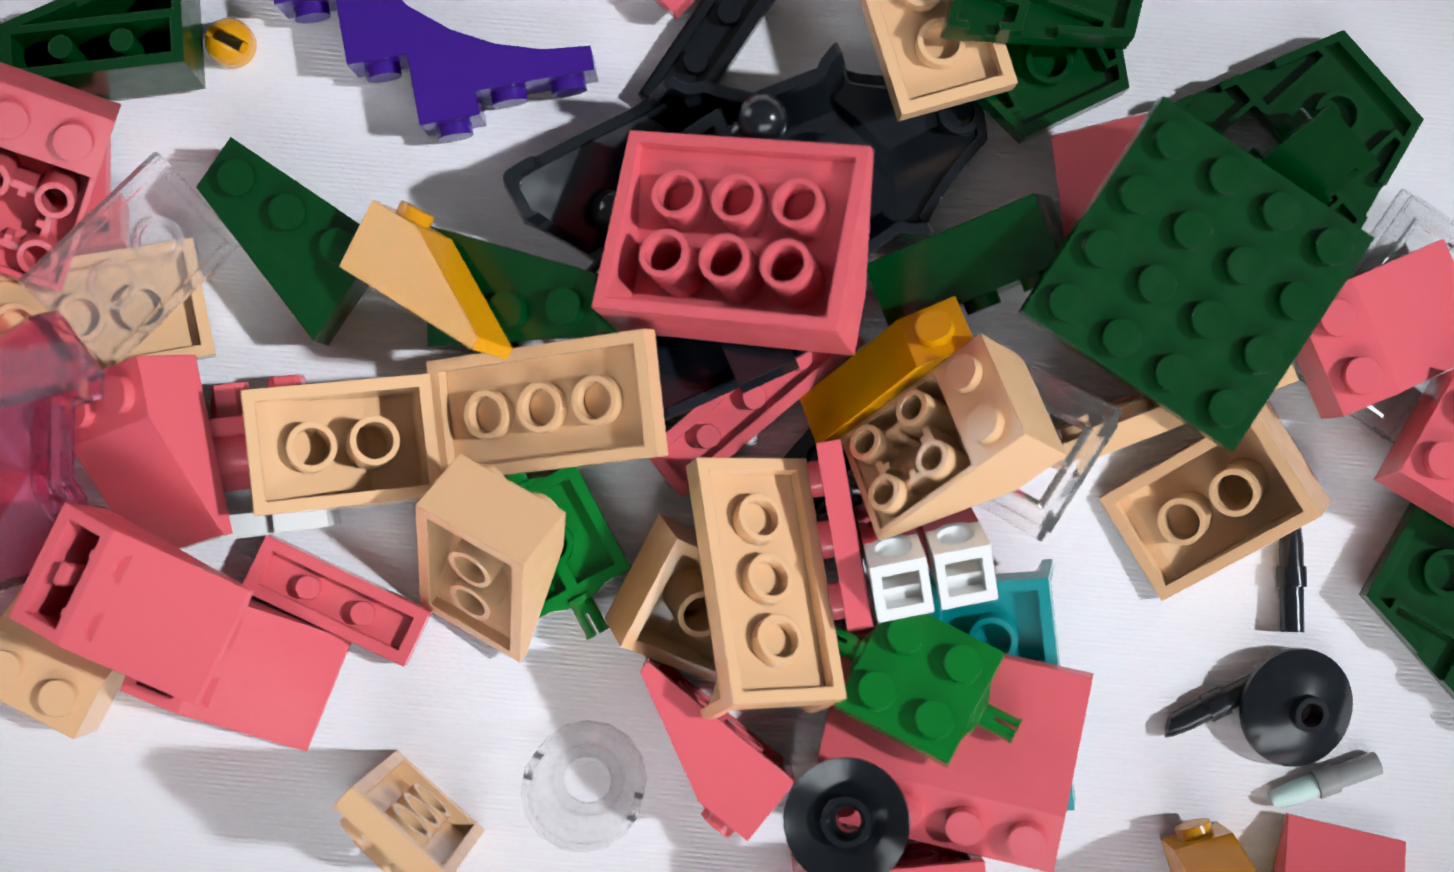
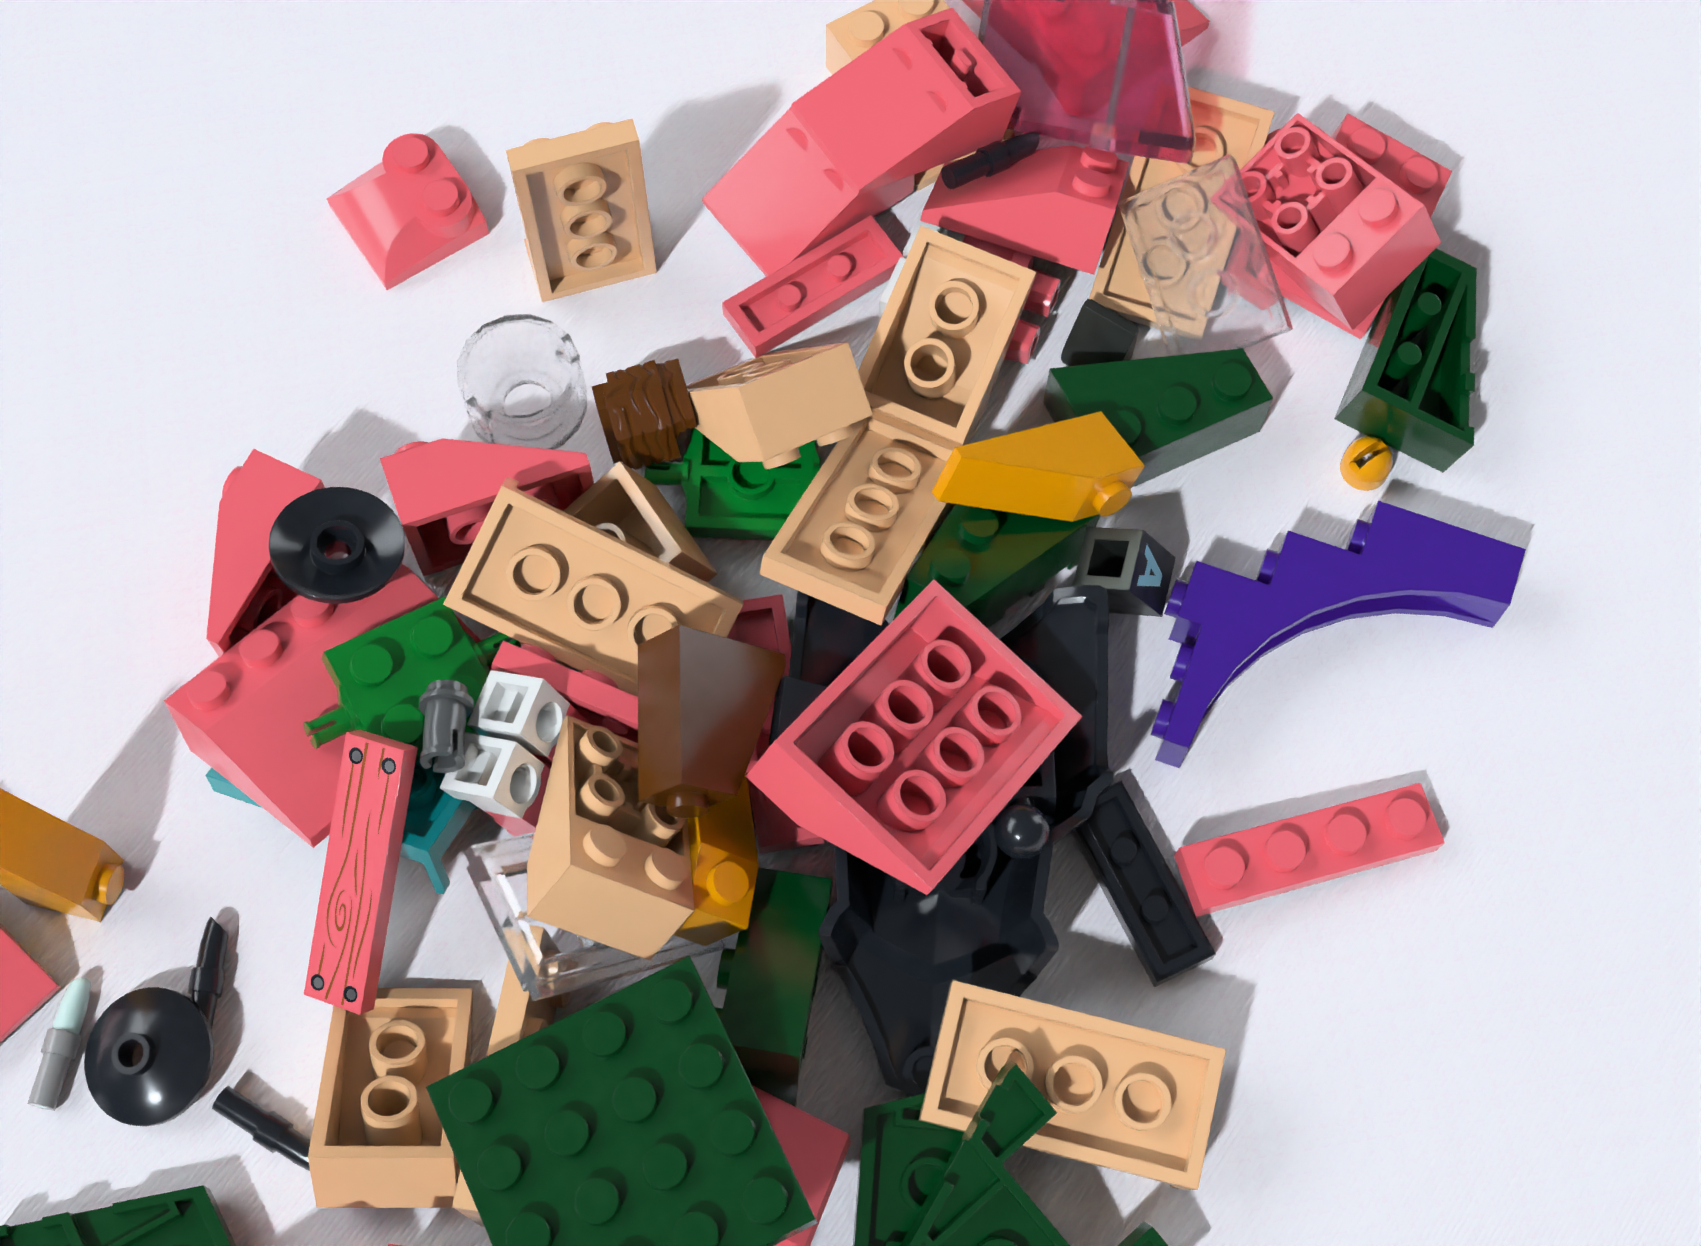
camera: 120 degrees right, 20 degrees down
(135, 505) = (990, 160): none -> black piece
(250, 322) = (1099, 337): none -> pearl dark grey slope
(462, 181) = (1129, 567): none -> pearl dark grey brick
(551, 663) = (644, 412): none -> reddish brown hair
(822, 425) = (700, 716): none -> reddish brown slope
(950, 624) = (445, 712): none -> dark grey pin
(1085, 626) = (360, 871): none -> coral tile

